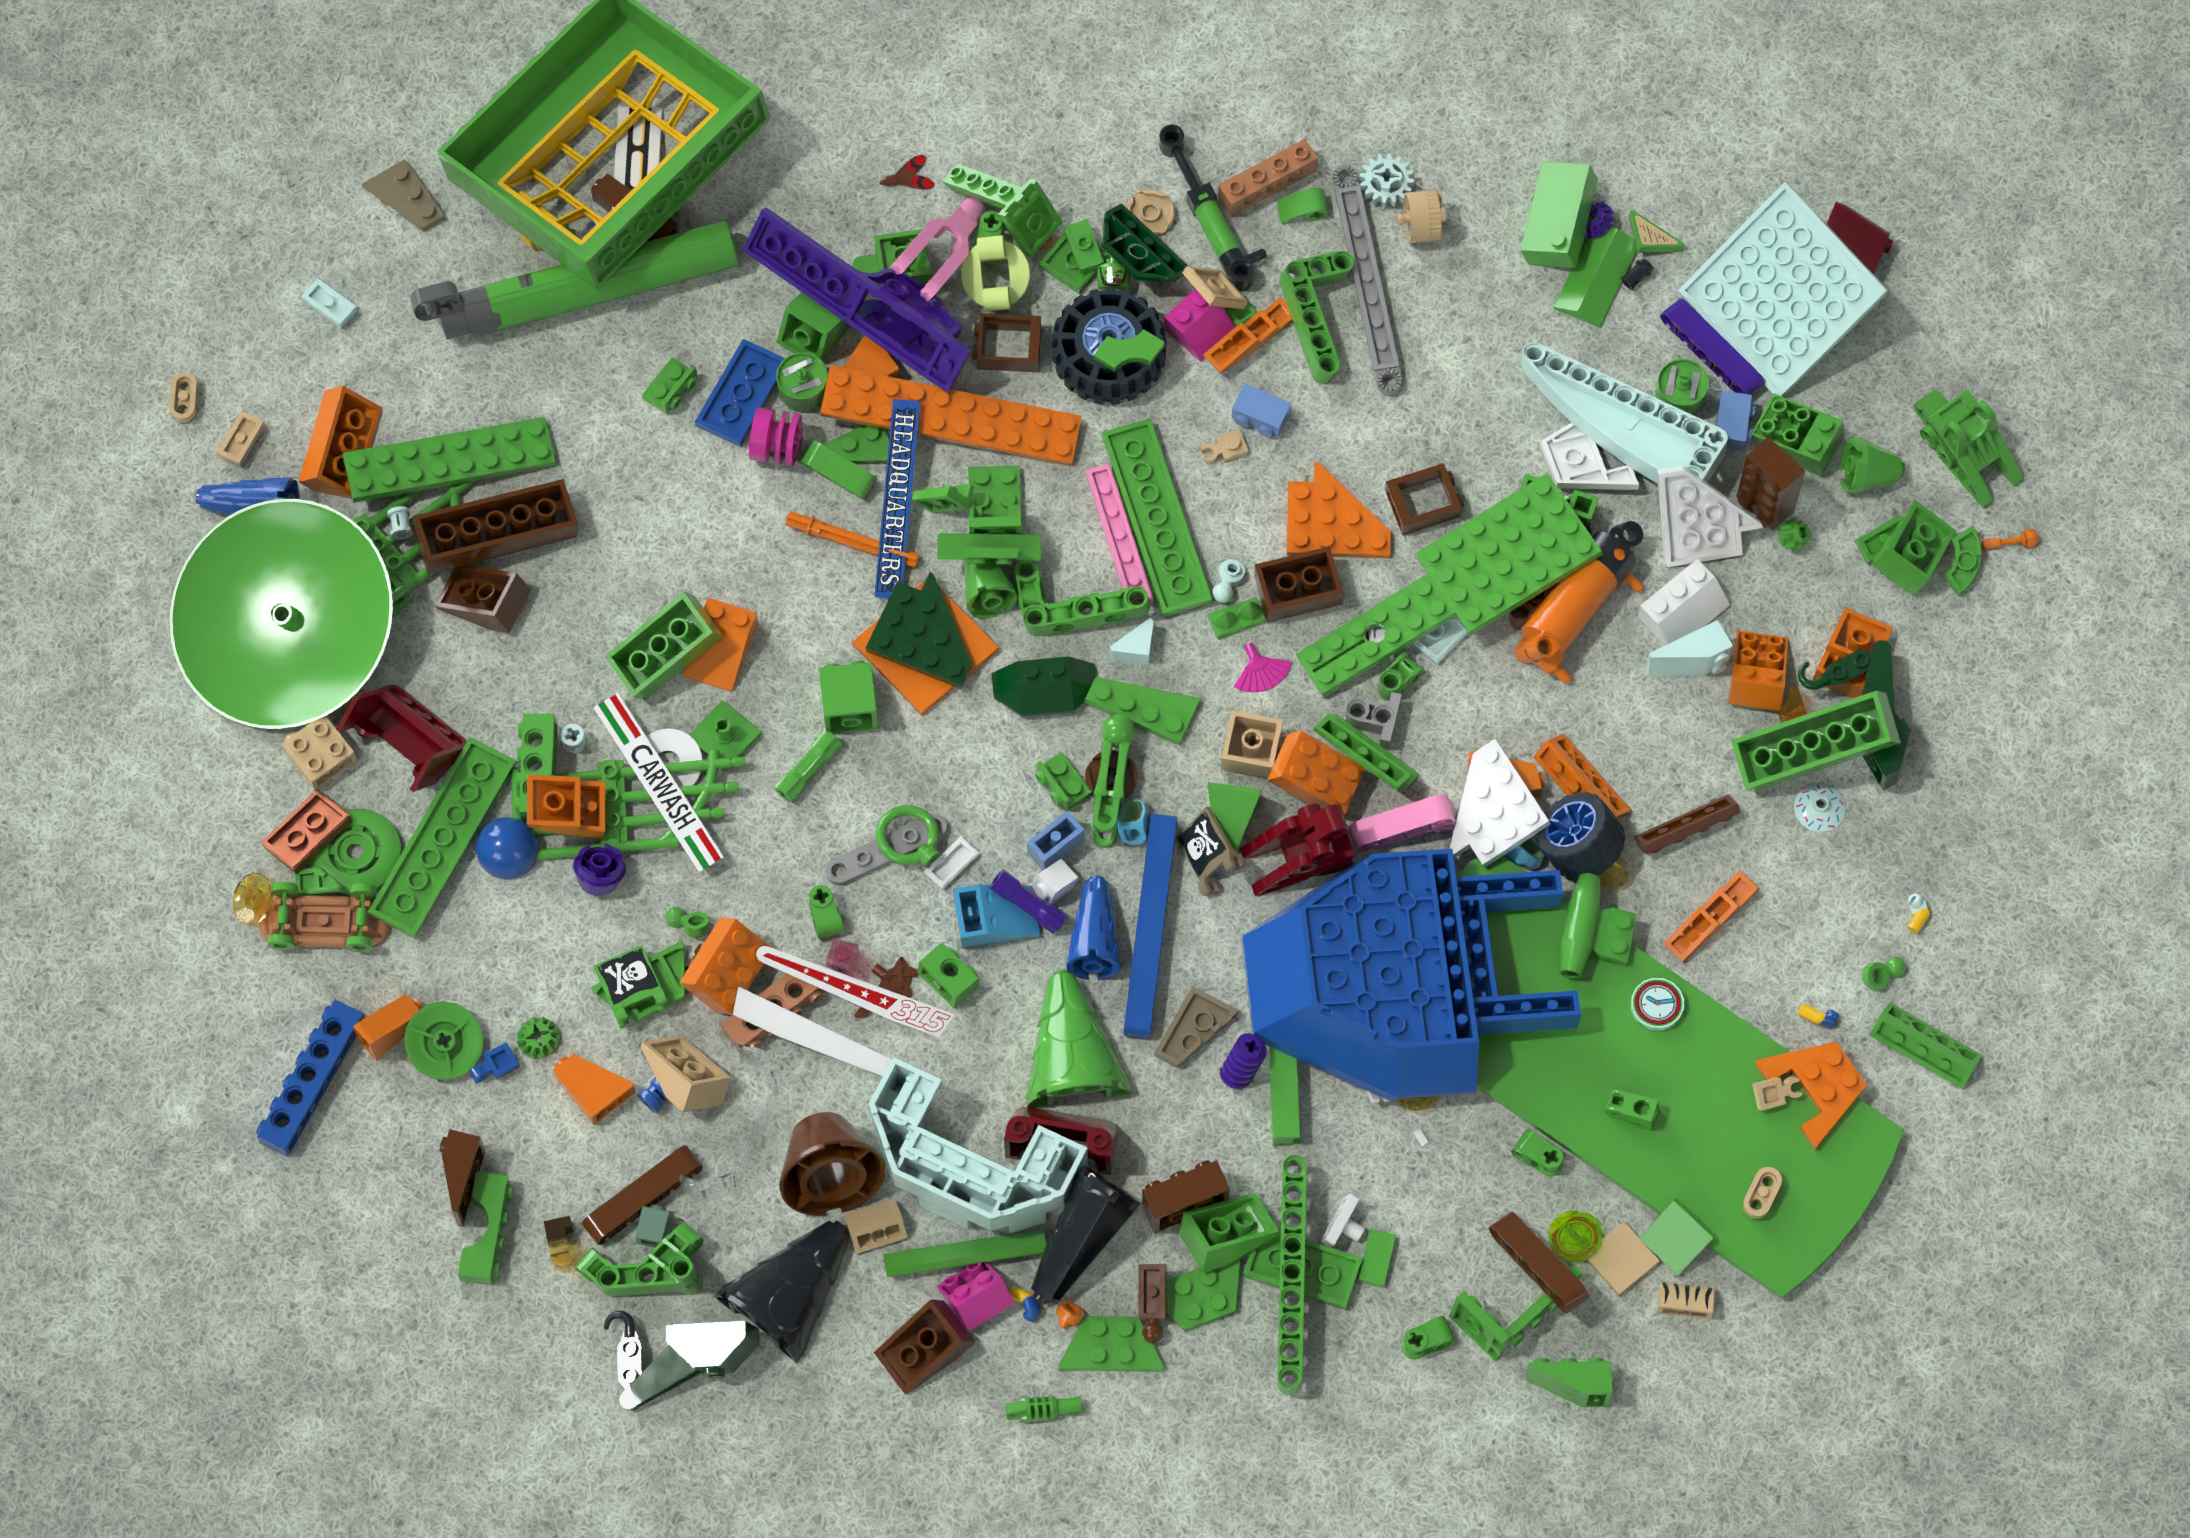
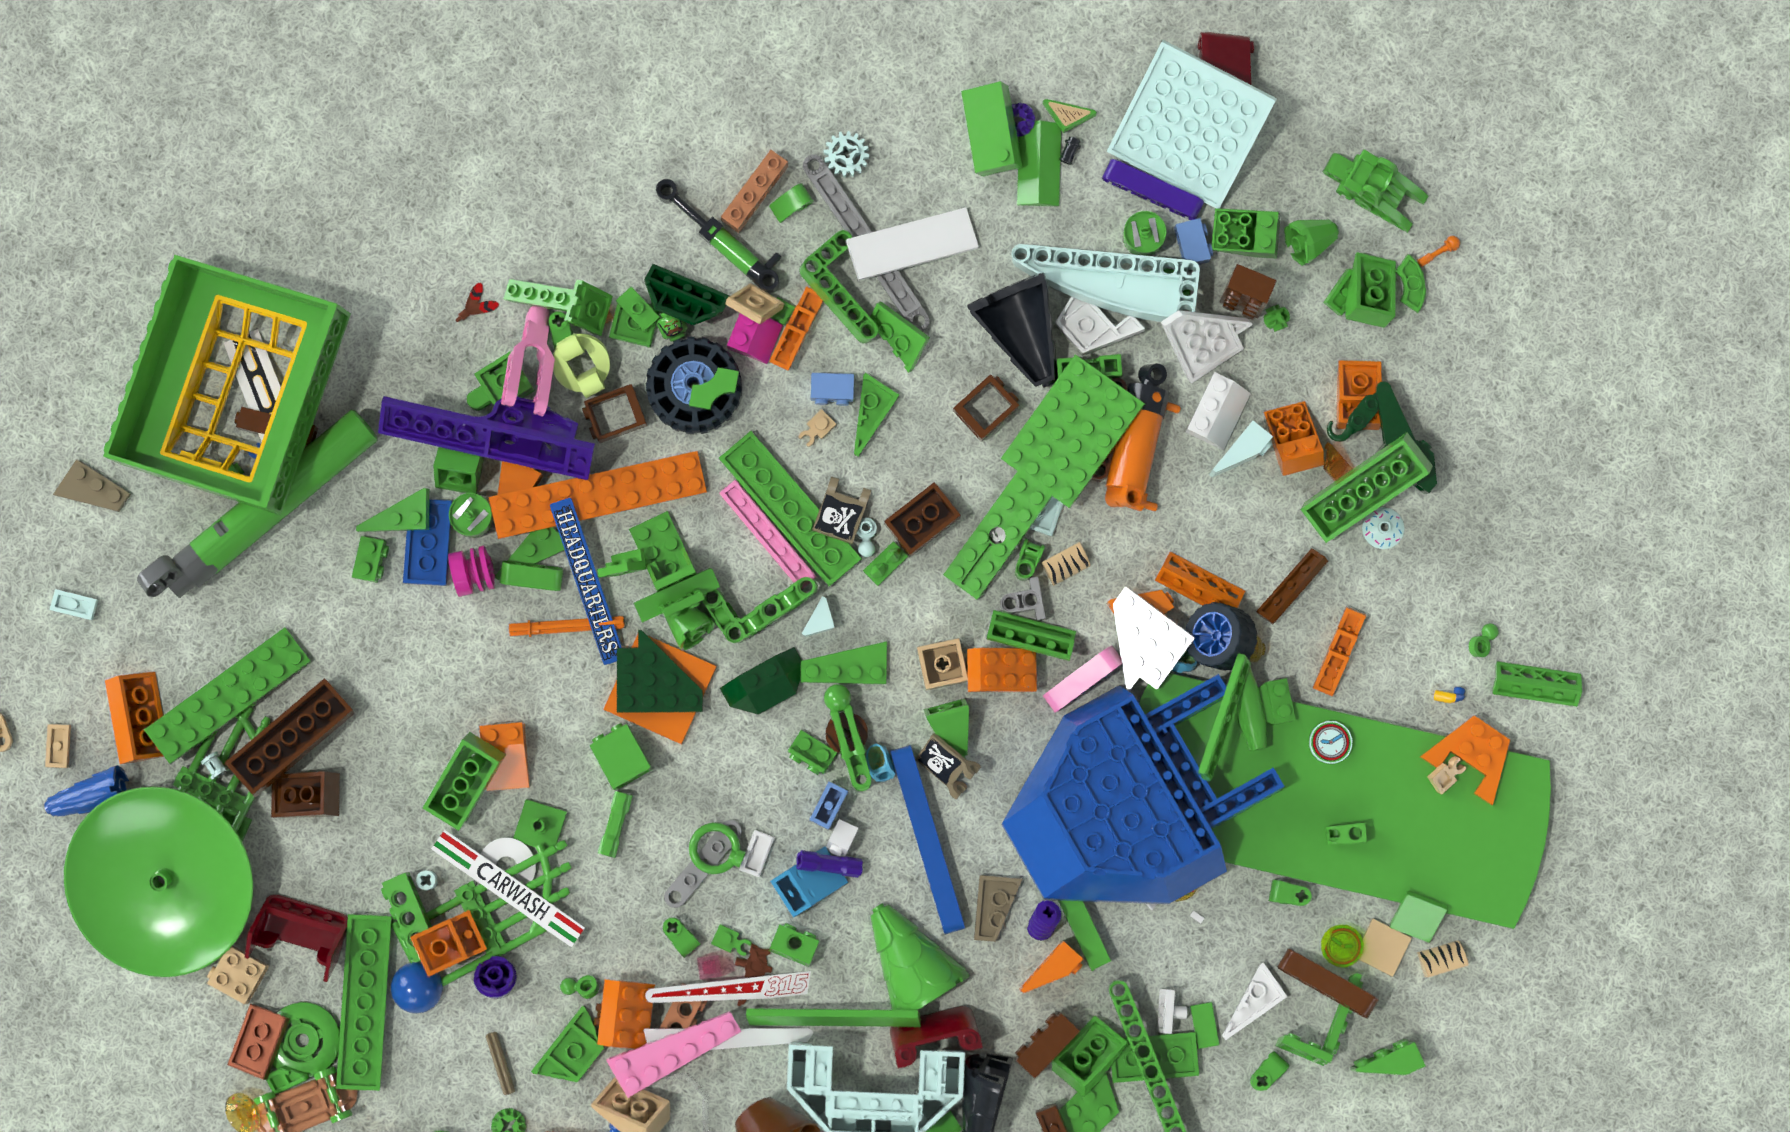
camera: 25 degrees left, 15 degrees up
(561, 966) = (500, 1063): none -> dark tan axle
(629, 981) = (558, 1056): flag -> none
(728, 1024) = (656, 1059): none -> bright pink wing
(729, 353) = (405, 515): none -> bright green wing
(877, 940) = (727, 939): none -> bright green plate
(957, 1066) = (833, 1017): none -> bright green tile
(1094, 939) = (891, 871): blue cone -> none
(1153, 210) = (682, 258): tan tile -> none
(1209, 543) = (840, 514): none -> flag
(1230, 1117) = (1057, 965): none -> orange slope
(1261, 672) = (922, 599): dark pink hand -> none
(1301, 448) = (874, 406): none -> bright green wing
(1312, 845) = (1020, 730): dark red piece -> none
(1329, 515) = (923, 454): orange wing -> none
(1362, 386) = (902, 336): none -> bright green wing
(1417, 297) = (912, 243): none -> white tile
(1423, 216) = (888, 175): tan piece -> none
(1439, 697) = (1066, 564): none -> tan brick
(1454, 1253) = (1258, 998): none -> white wing
(1501, 426) = (1022, 326): none -> black cone
(1544, 913) = (1224, 717): none -> bright green tile
(1762, 1194) = (1469, 858): tan plate -> none
(1919, 911) = (1490, 580): arm -> none

